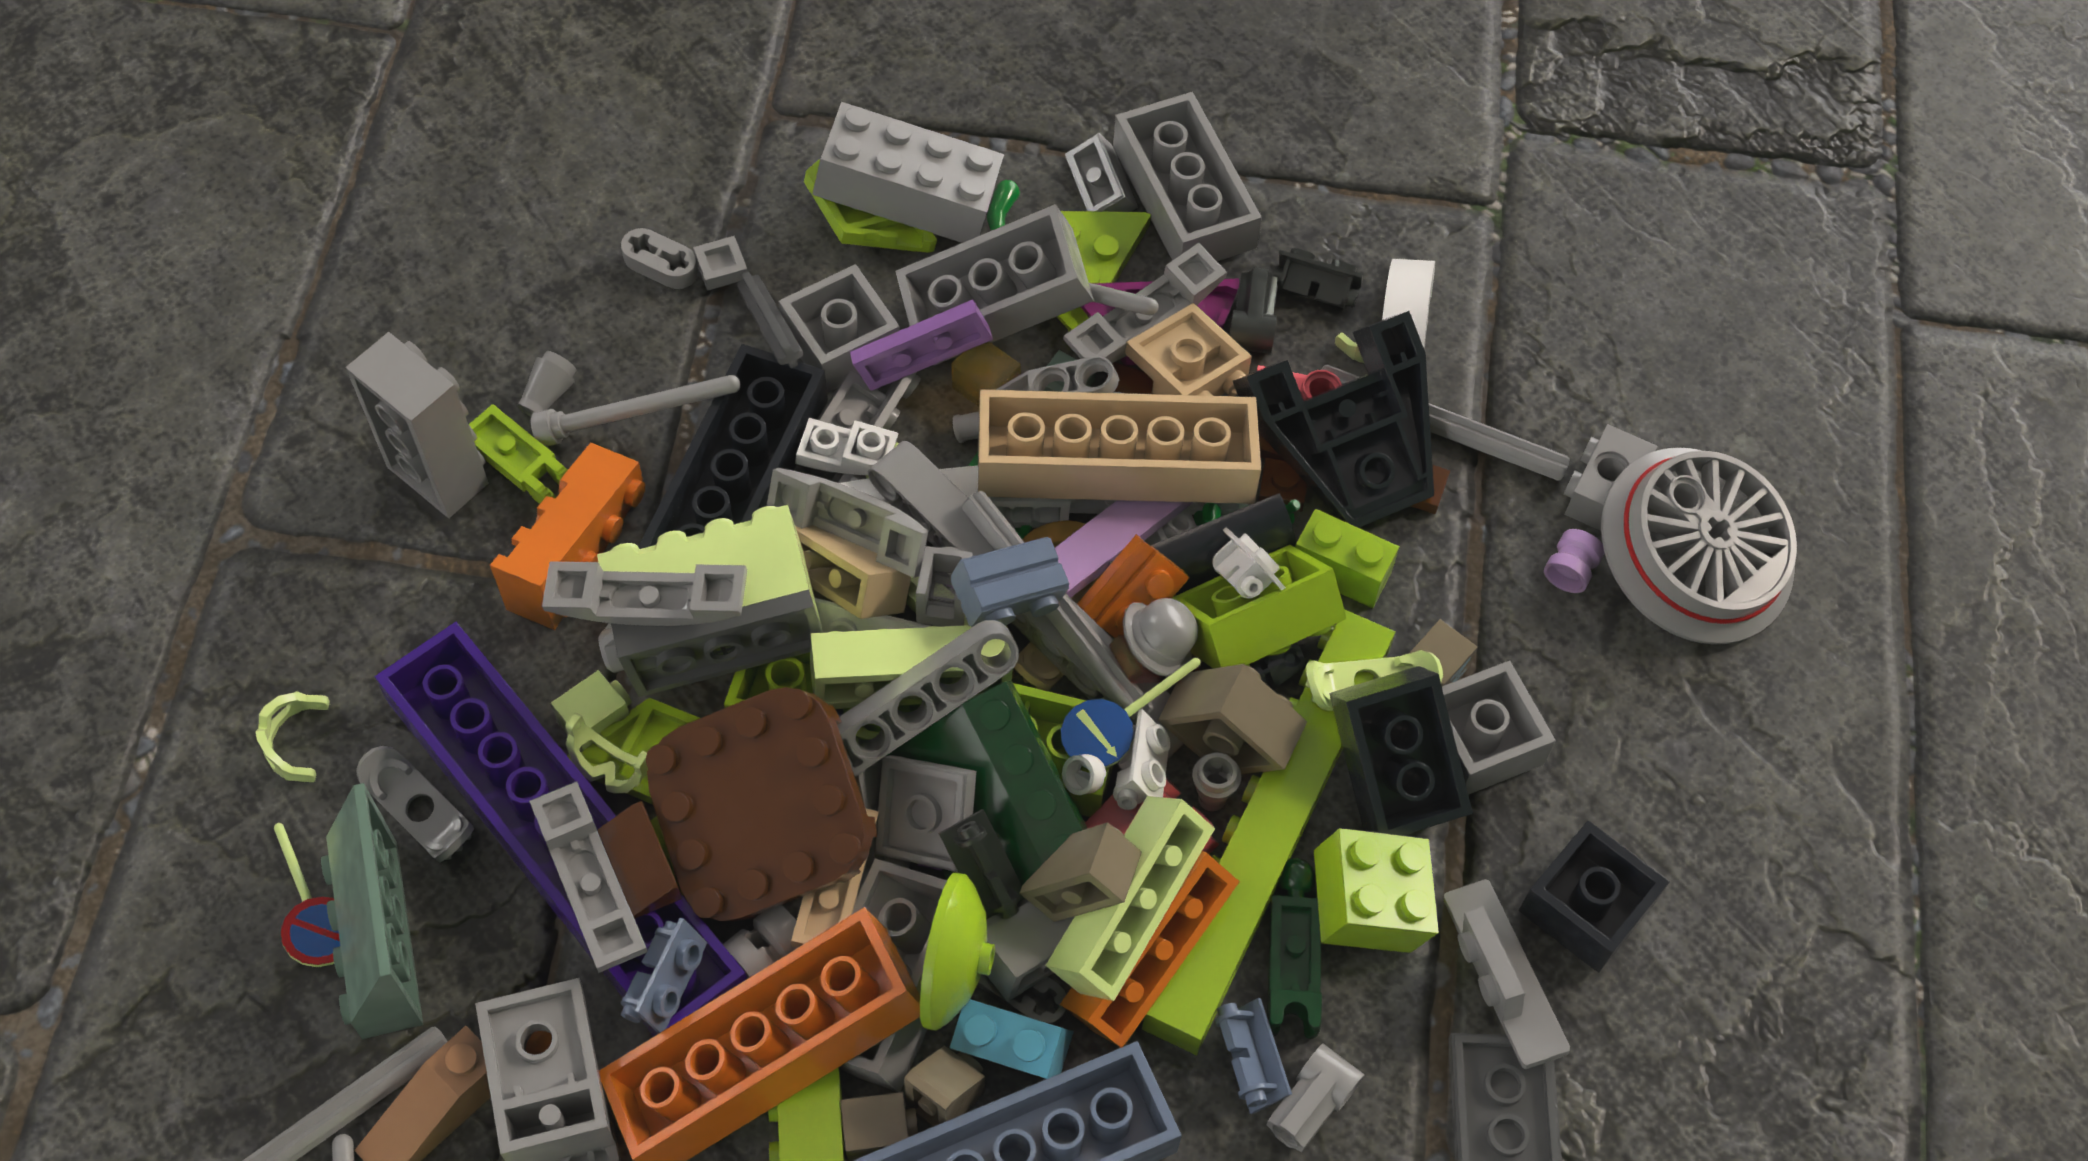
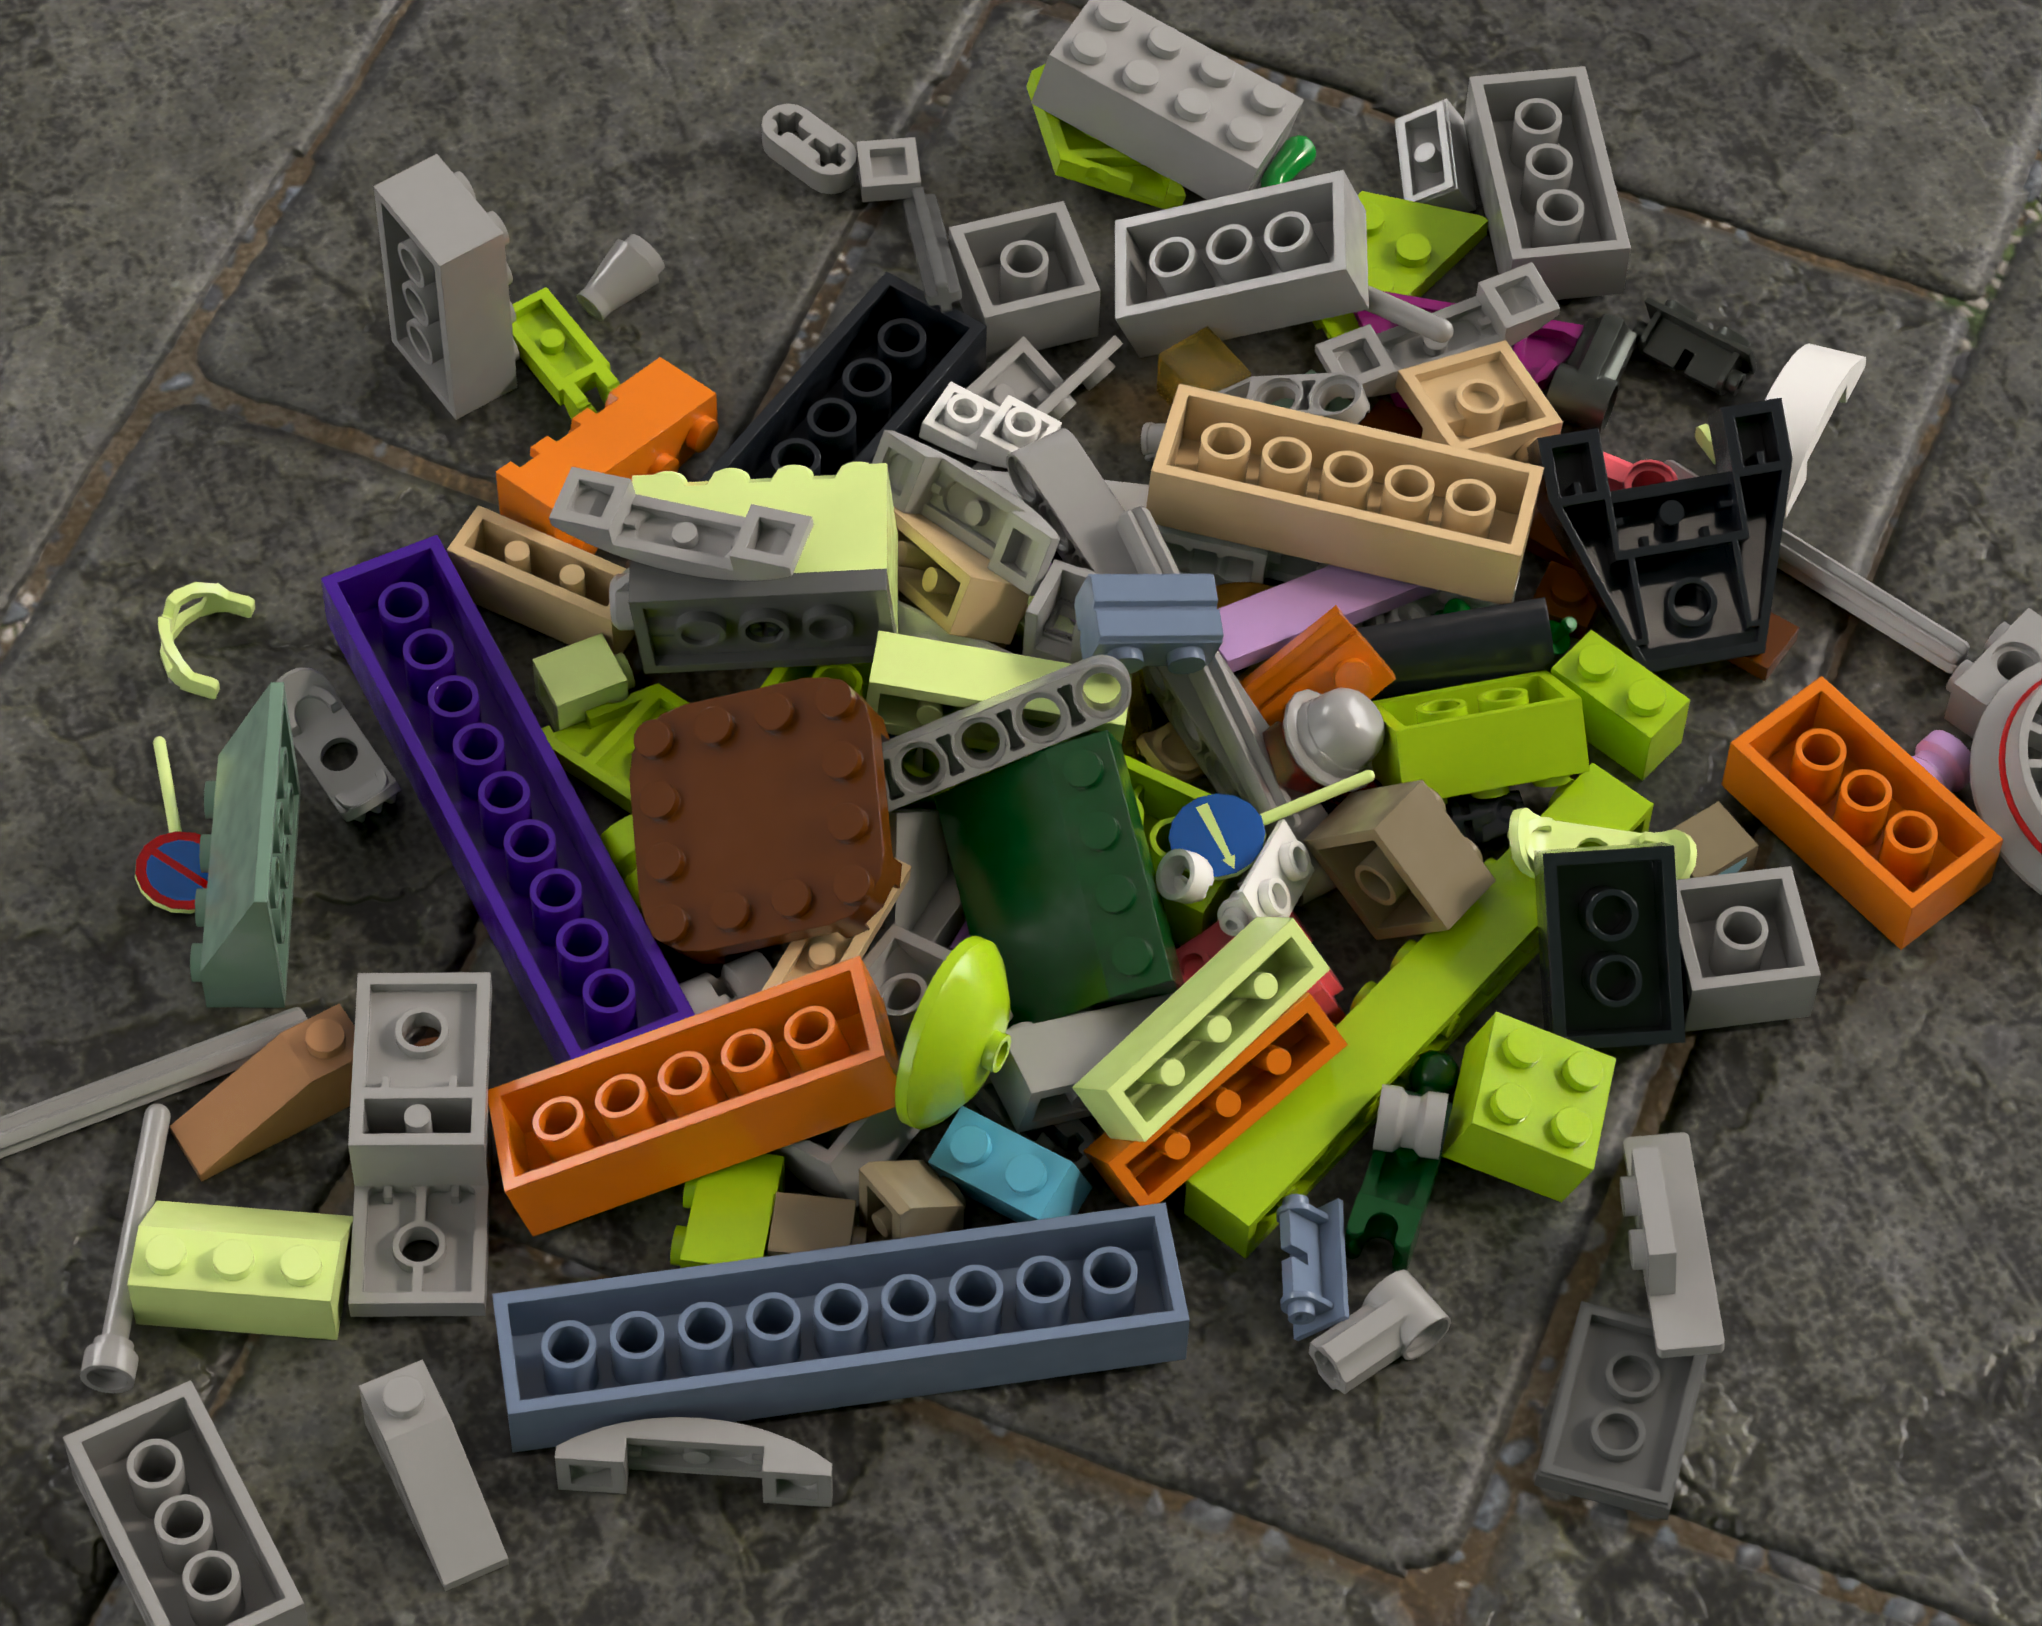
camera: 15 degrees right, 5 degrees down
(534, 639) = (536, 579): none -> tan brick
(552, 426) = (617, 330): light grey piece -> none
(580, 734) = (560, 702): yellowish green helmet -> none
(588, 877) = (529, 857): light grey slope -> none
(639, 861) = (597, 858): reddish brown slope -> none
(674, 956) = (606, 986): sand blue hinge -> none
(919, 803) = (969, 878): light grey plate -> none
(921, 345) = (1121, 318): medium lavender plate -> none
(981, 857) = (1026, 941): pearl dark grey hinge -> none
(1084, 874) = (1146, 984): dark tan slope -> none
(1215, 780) = (1360, 933): light grey cone -> none
(1246, 565) = (1470, 674): white hinge -> none
(1296, 926) = (1410, 1121): none -> light grey wheel
(1538, 603) = (1861, 812): none -> orange brick
(1593, 896) = (1816, 1177): black brick -> none

